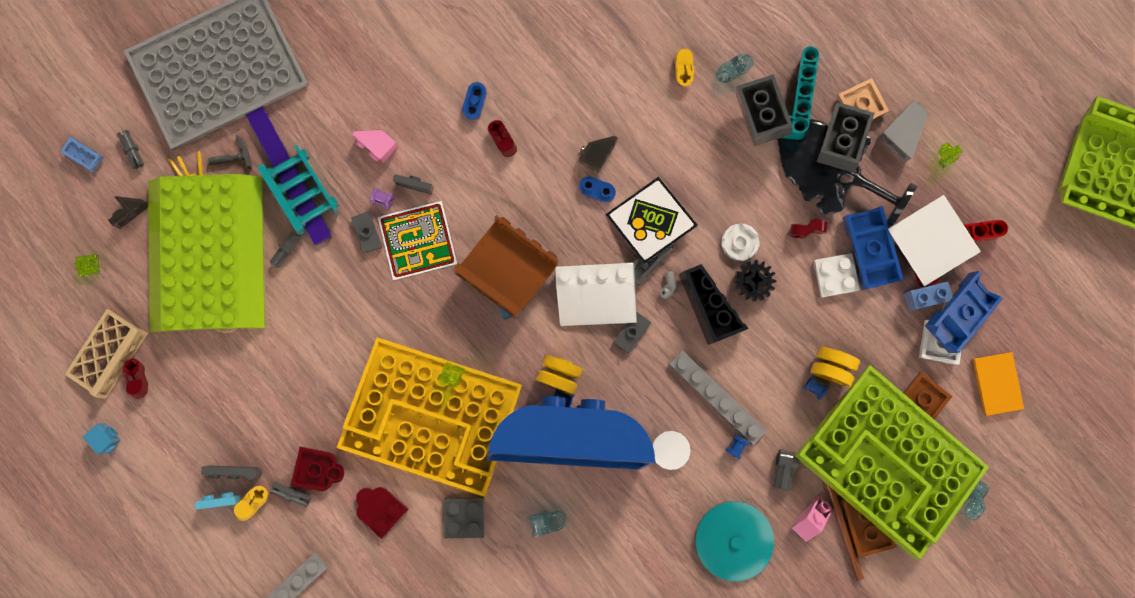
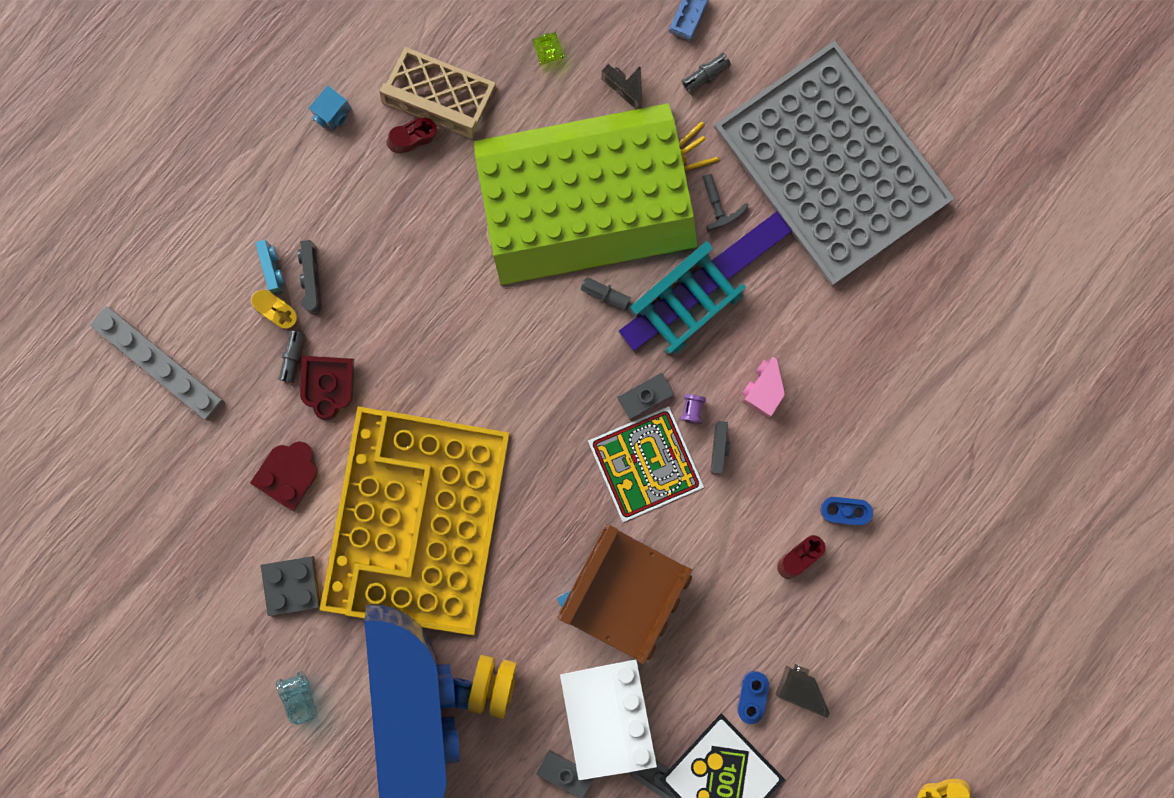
camera: 85 degrees right, 0 degrees up
(451, 374) = (472, 542): clear neon green tile -> none

